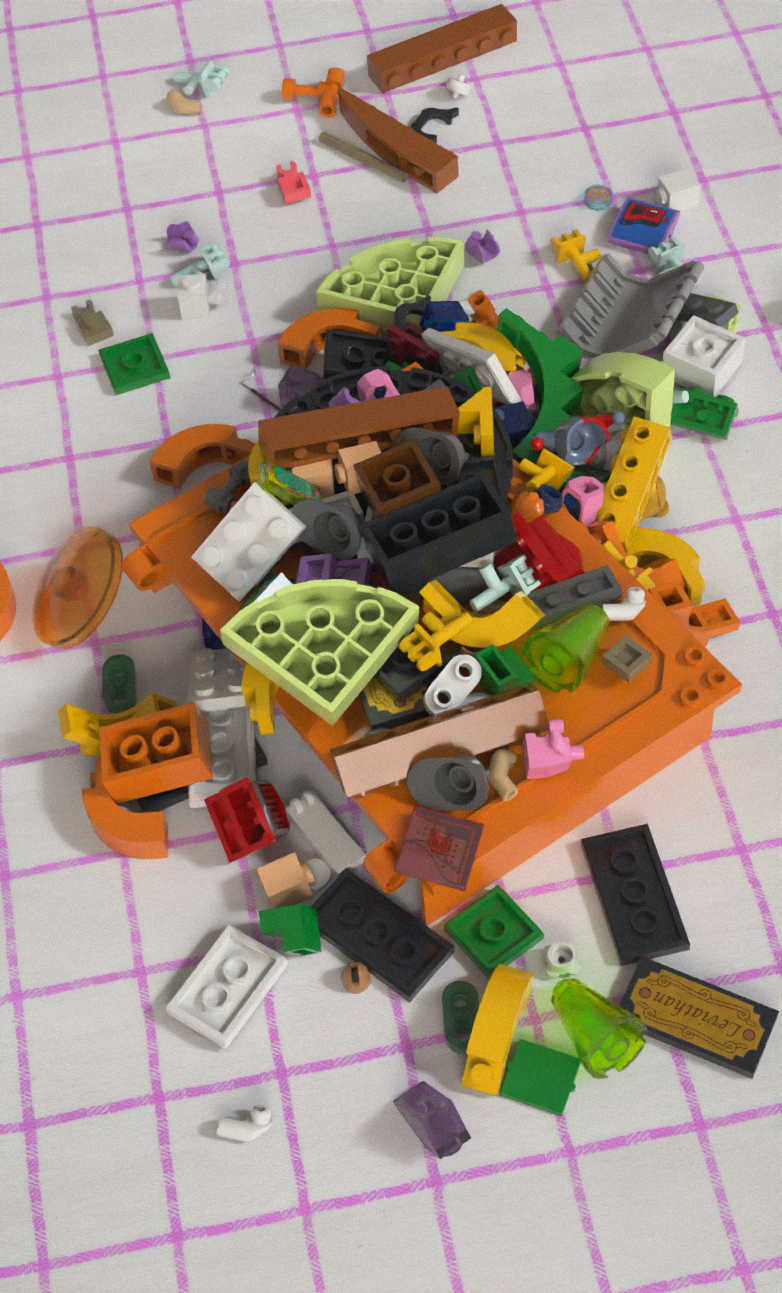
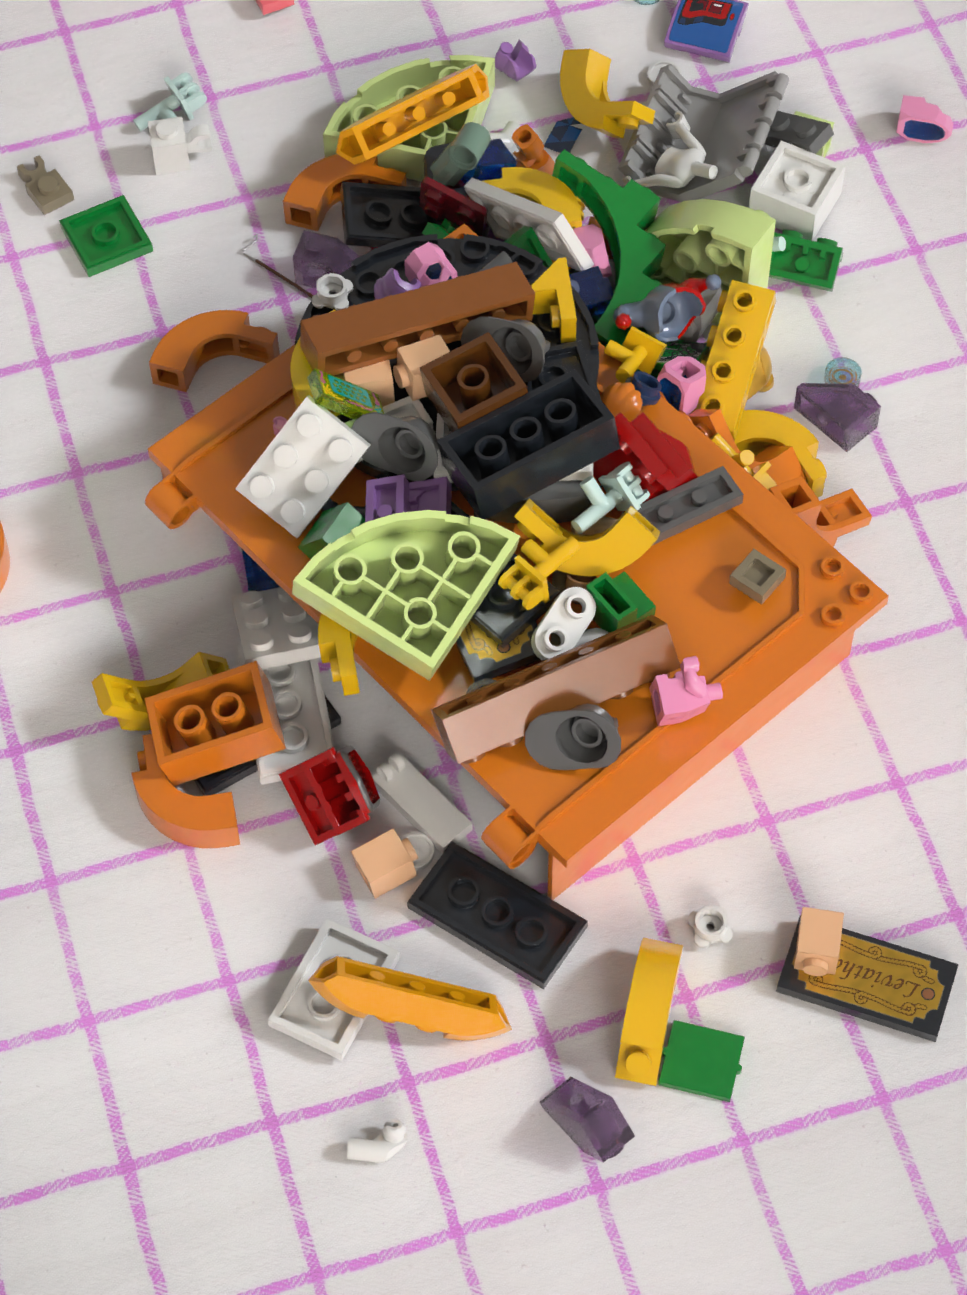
camera: 10 degrees left, 5 degrees up
(77, 588) = (89, 528): clear orange dish -> none
(119, 687) = (152, 644): clear green plate -> none
(181, 237) = (140, 67): medium lavender arm -> none
(221, 500) = (259, 413): dark grey bar -> none
(290, 1000) = (410, 999): none -> light orange brick
(295, 402) = (331, 284): none -> white plate
(296, 926) = (405, 911): green piece -> none
(363, 974) = (470, 969): medium nougat hinge -> none
(389, 278) = (413, 114): none -> light orange brick
(422, 309) = (461, 154): none -> sand green piece
(439, 848) = (569, 813): clear red piece -> none
(459, 1019) = (604, 1003): clear green plate -> none
(493, 931) = (629, 900): green tile -> none
(499, 766) = (627, 713): tan arm -> none
(520, 302) = (564, 135): none -> sticker
(537, 274) = (586, 96): none -> yellow arch
(566, 648) = (689, 569): clear neon green cone -> none
(572, 248) = (624, 57): yellow arm -> none
(597, 1027) = (760, 999): clear neon green cone -> none
(607, 332) = (677, 165): none -> white piece
(628, 608) = (751, 515): white arm -> none
(634, 894) = (783, 843): black tile -> none
(653, 979) = (818, 941): none -> light nougat brick
(667, 256) = (739, 62): light aqua arm -> none
(721, 535) = (838, 411): none -> clear purple slope
(728, 507) = (843, 371): none -> clear light blue tile

